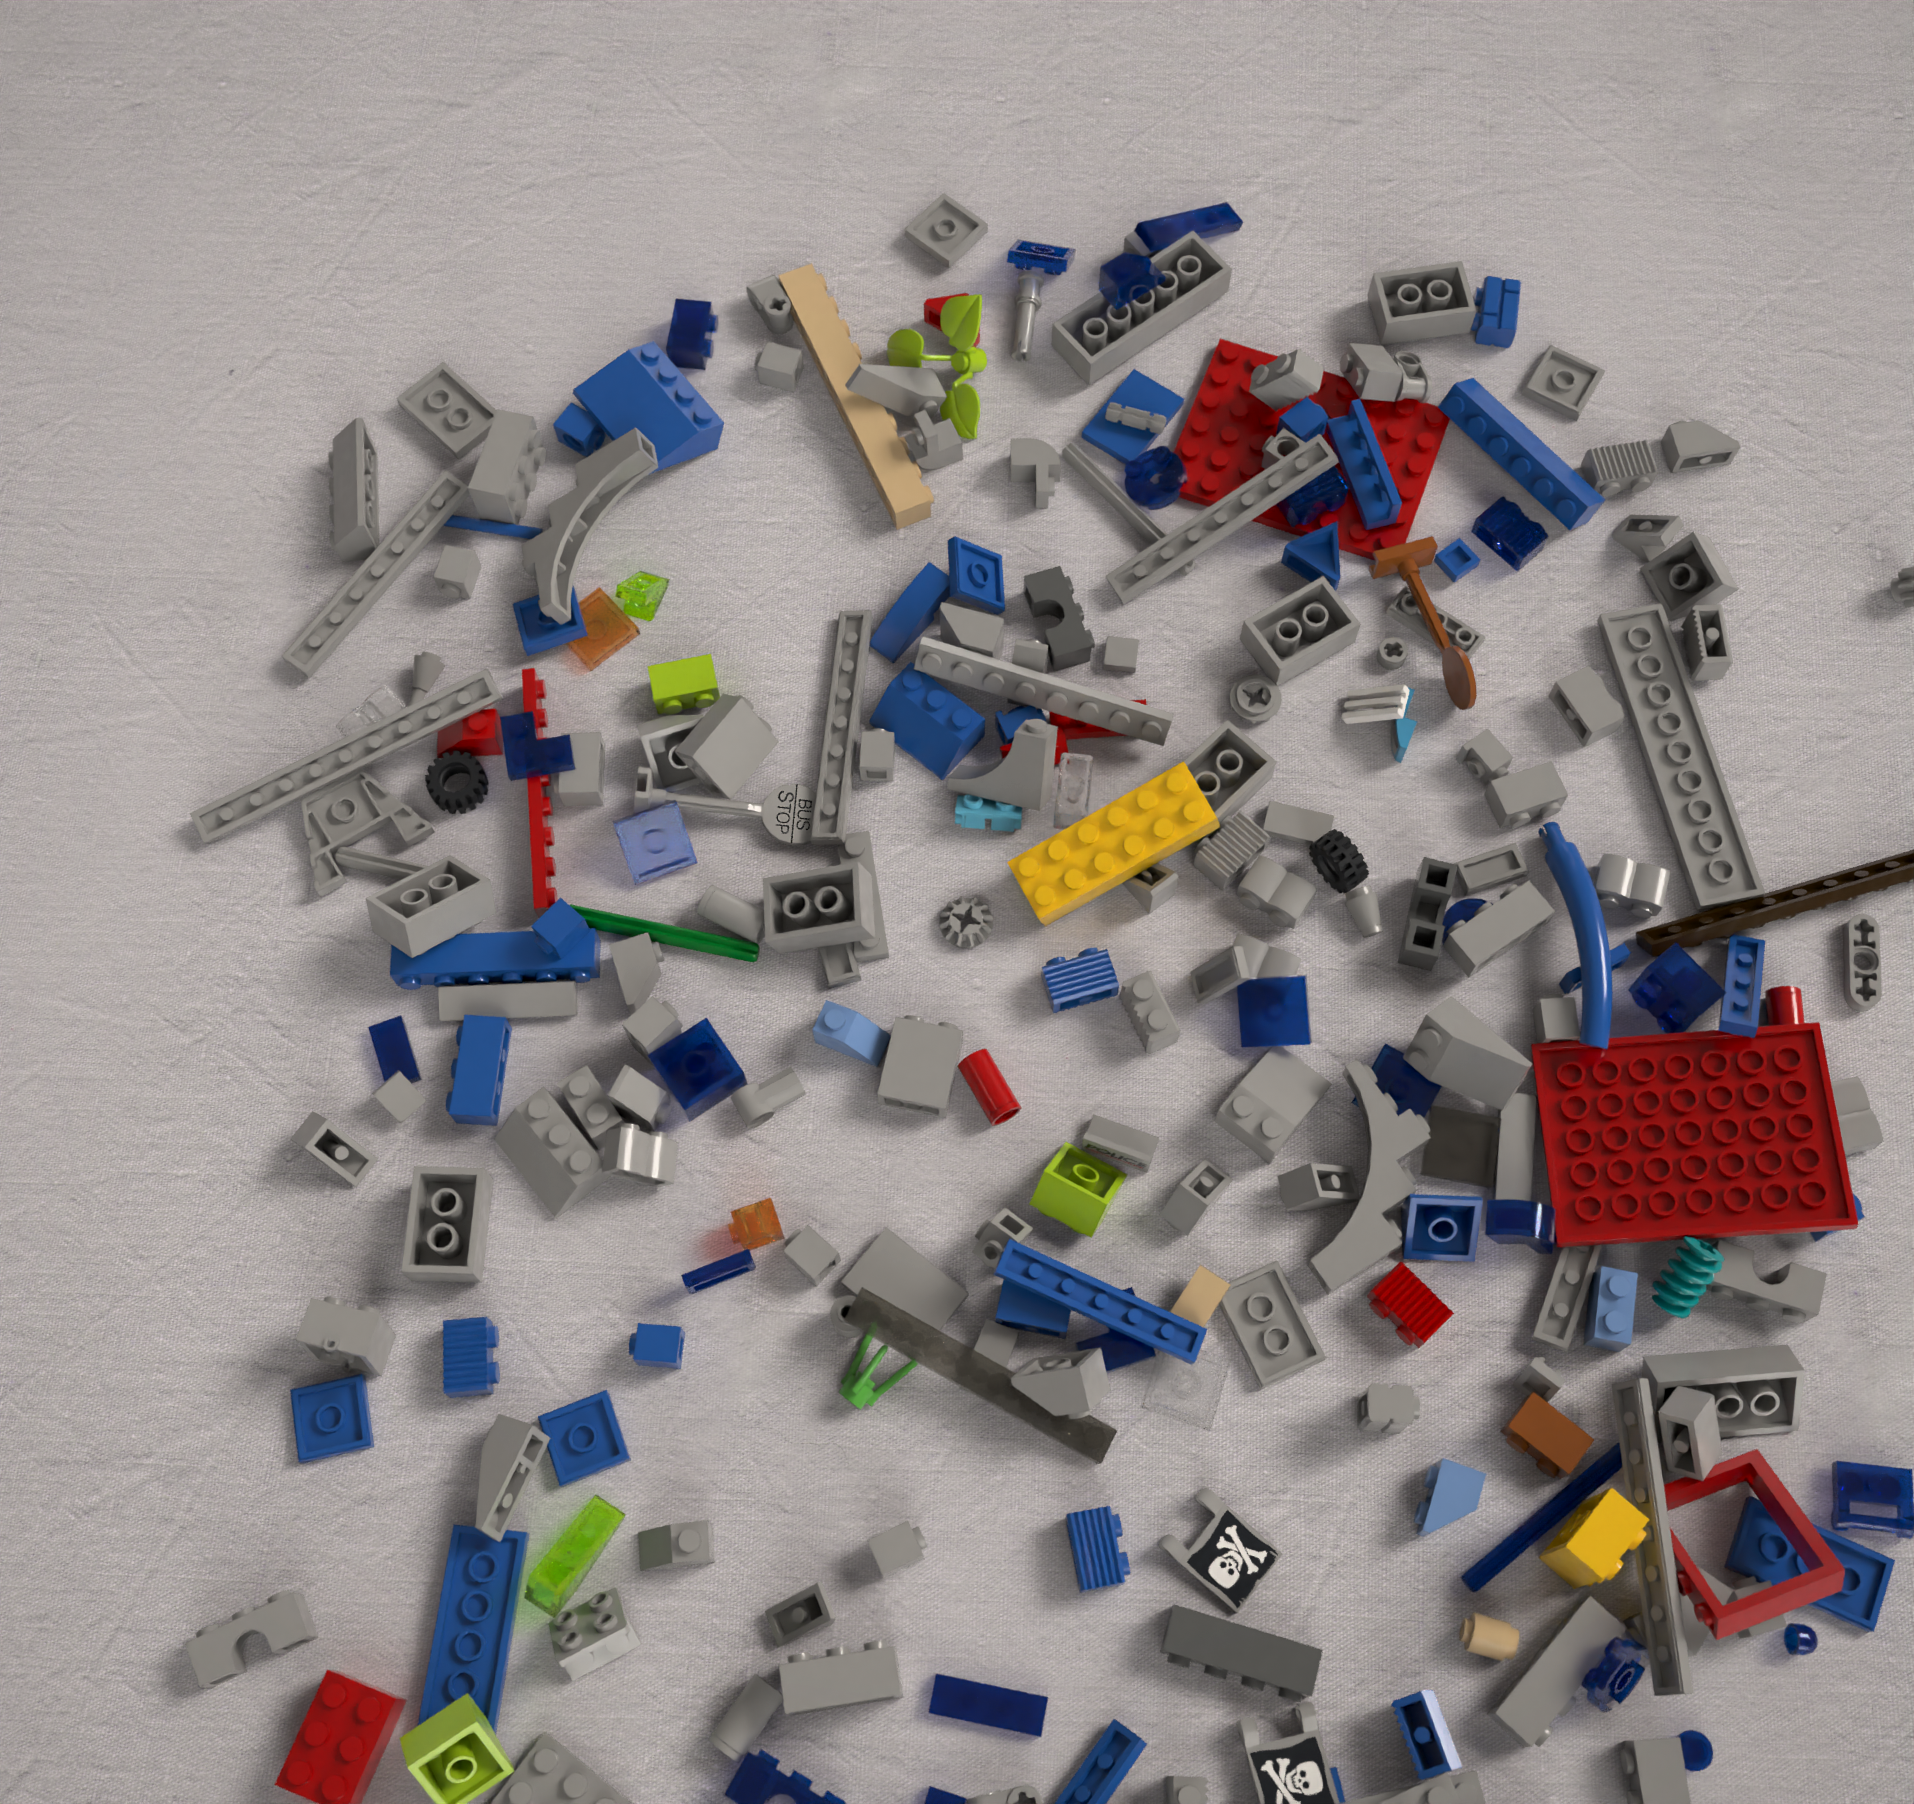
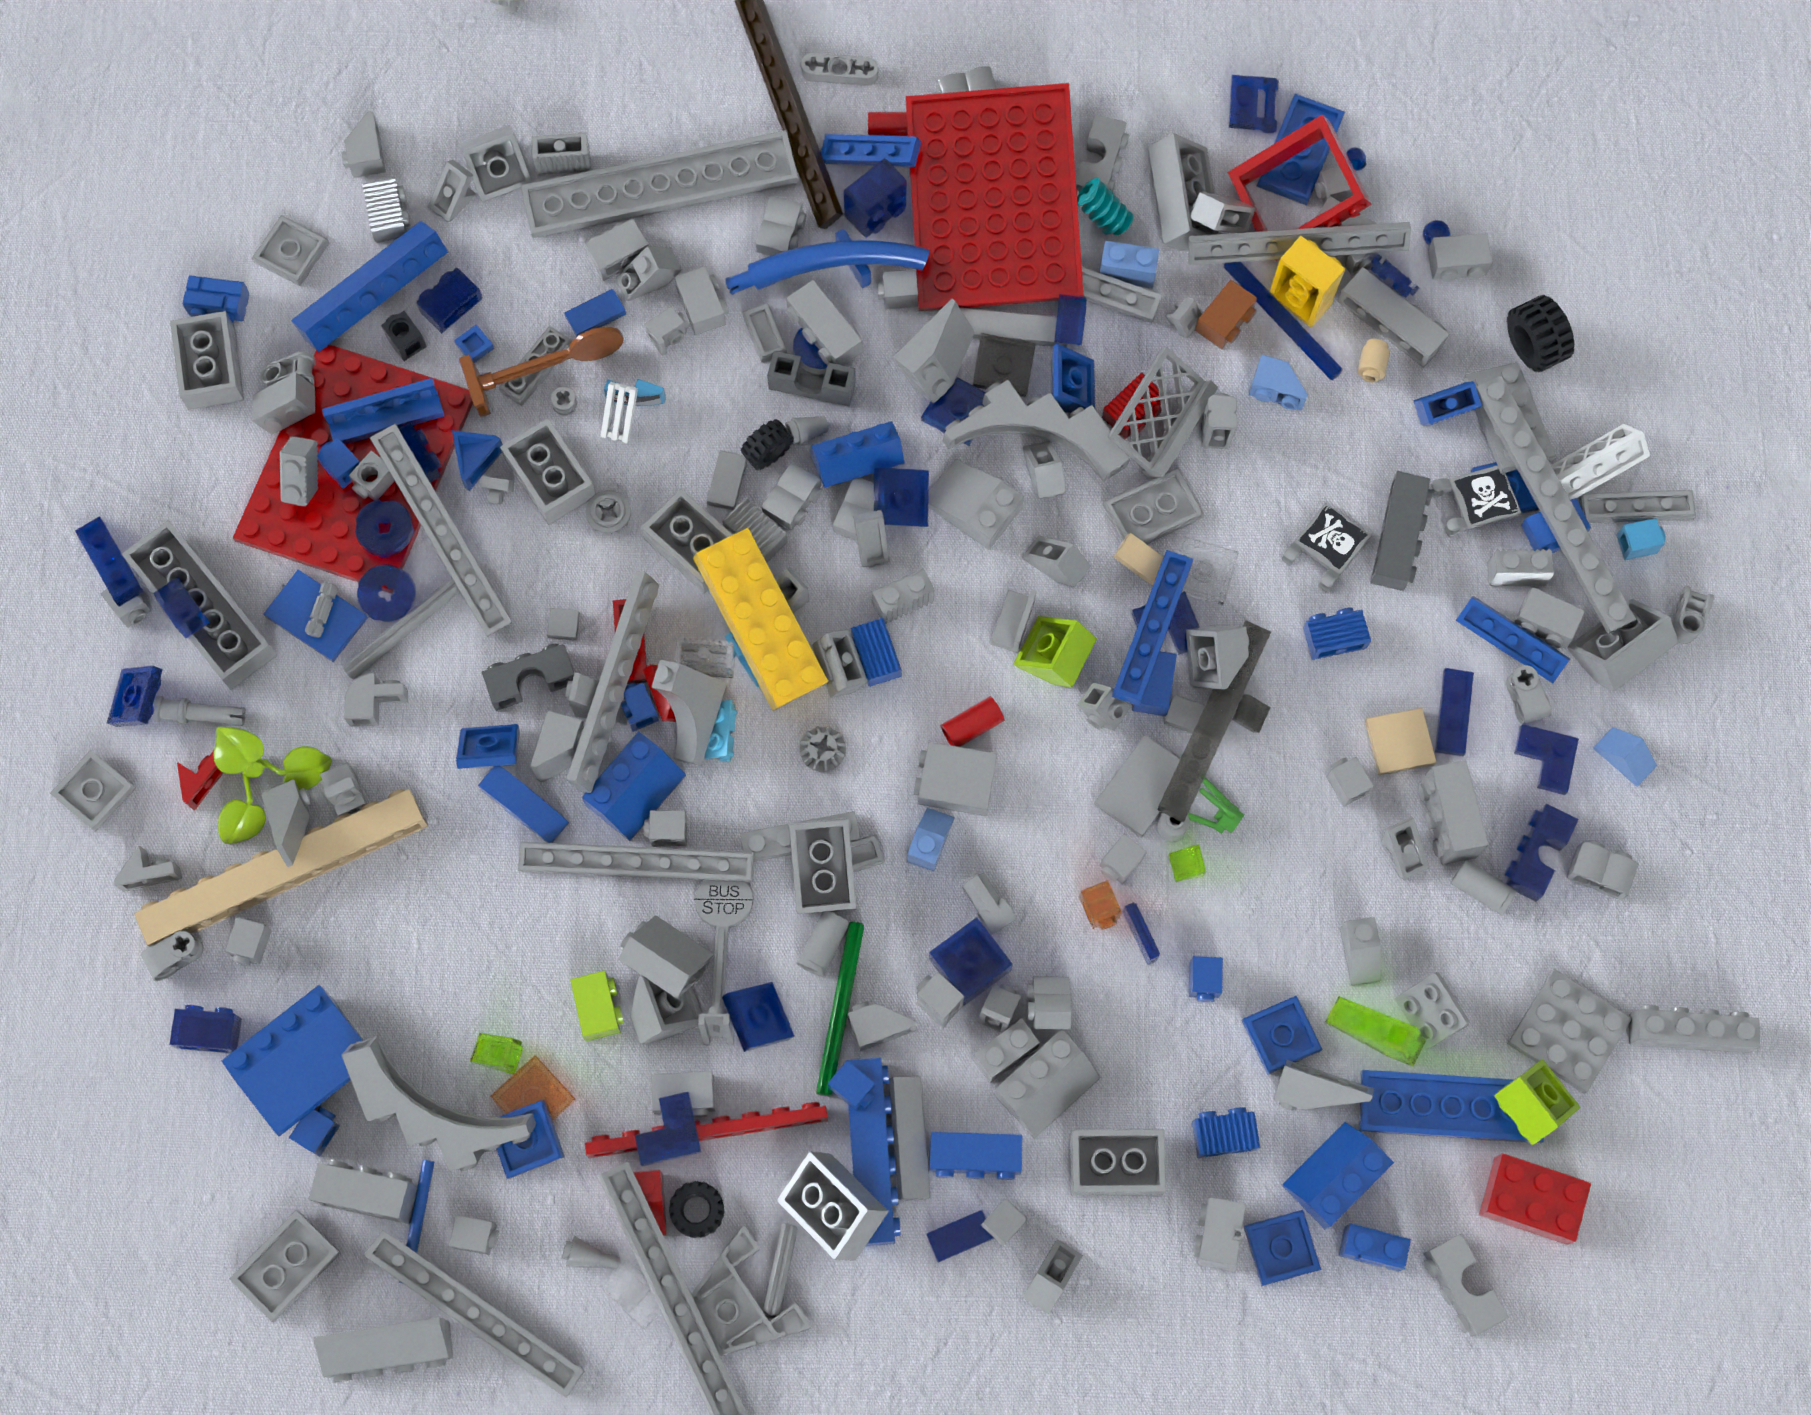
camera: 95 degrees left, 5 degrees up
(311, 1527) = (1374, 1247): none -> blue brick
(404, 1490) = (1337, 1174): none -> blue slope
(803, 1336) = (1187, 863): none -> clear neon green slope
(860, 273) = (139, 874): none -> light grey slope
(949, 1626) = (1400, 741): none -> tan tile
(991, 1427) = (1251, 713): none -> clear smoke plate
(1064, 936) = (840, 663): none -> light grey brick
(1216, 455) = (385, 543): none -> clear blue plate
(1281, 583) = (497, 487): none -> light grey tile
(1327, 960) = (857, 454): none -> blue slope
(1380, 1360) = (1177, 429): none -> light grey fence
(1456, 498) = (410, 343): none -> black brick
(1504, 685) = (595, 312): none -> blue tile
(1560, 739) = (648, 272): none -> light grey slope

